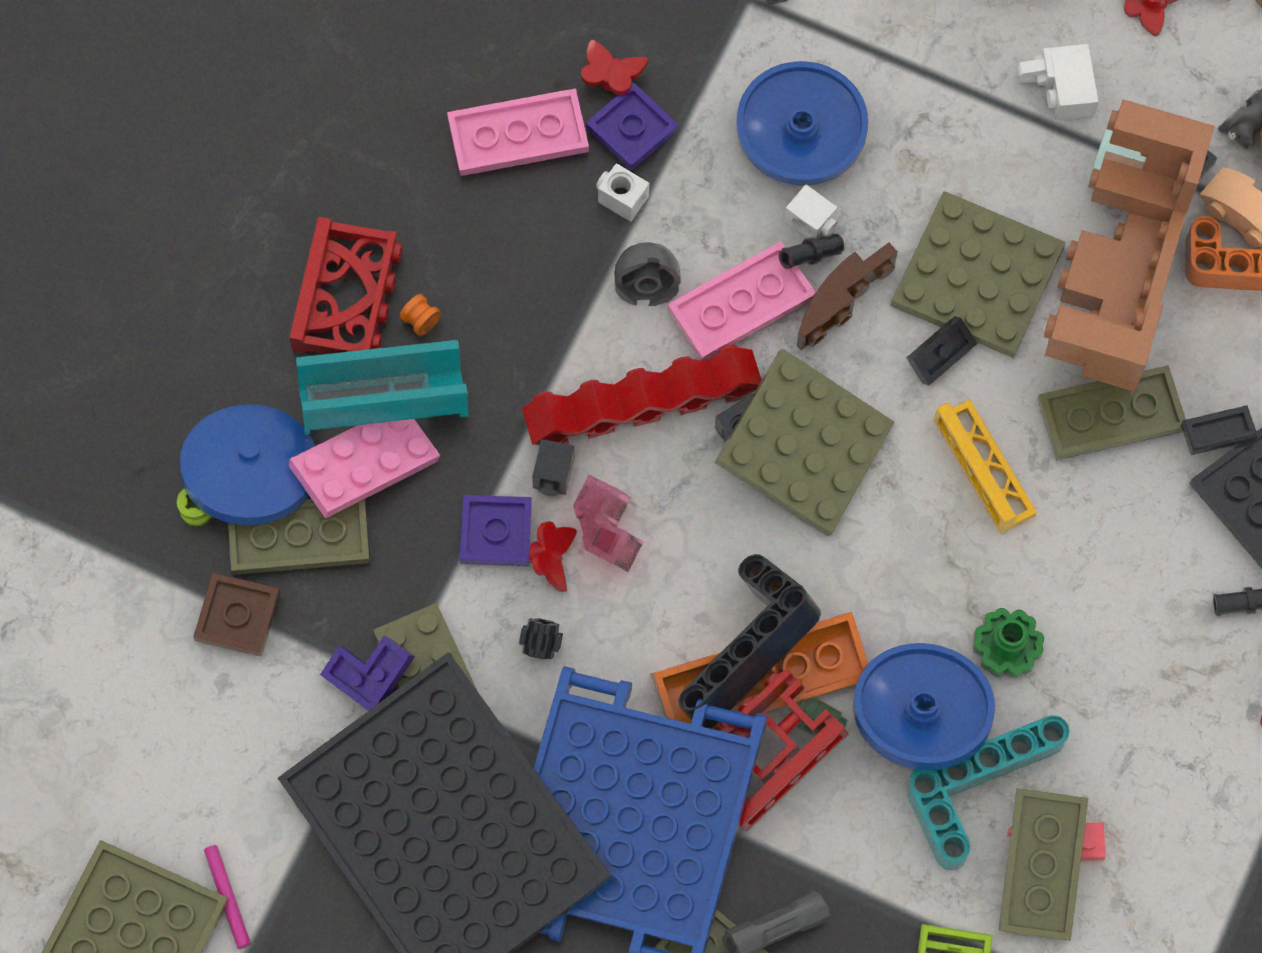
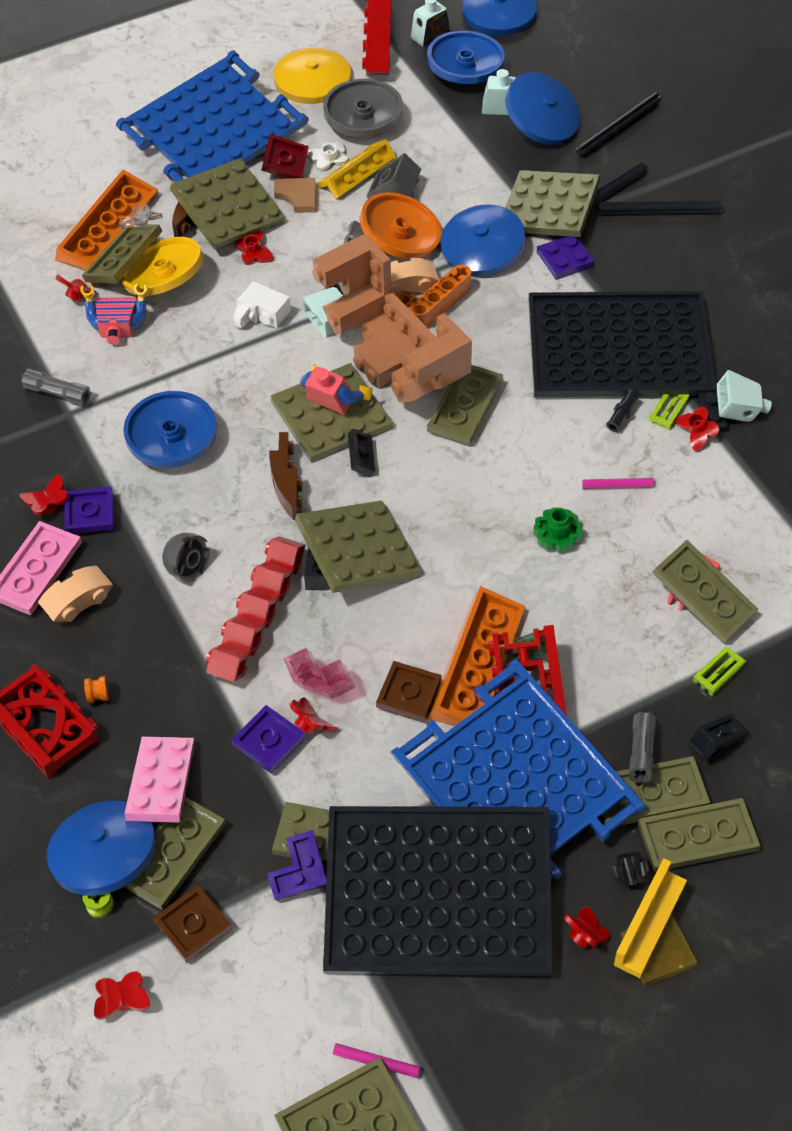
camera: 50 degrees left, 15 degrees down
(114, 605) = (120, 995): none -> red animal
(381, 385) = (122, 737): teal piece -> none
(500, 198) = (69, 598): none -> light nougat brick
(540, 638) = (359, 757): black gear -> none
(553, 467) = (257, 681): black brick -> none
(625, 204) = (123, 539): white brick -> none
(664, 631) = (408, 691): none -> reddish brown plate
(740, 302) = (244, 526): bright pink plate -> none
(760, 645) = (461, 615): black beam -> none
(811, 214) = (226, 460): white brick -> none
(811, 251) = (248, 472): black pin -> none
(923, 706) = (566, 587): blue dish -> none
(977, 774) = (624, 618): teal beam -> none
(978, 469) = (443, 478): yellow fence -> none
(988, 256) = (332, 390): none -> coral torso
(1135, 665) = (617, 483): none -> dark pink bar
(1219, 430) = (518, 361): black tile -> none

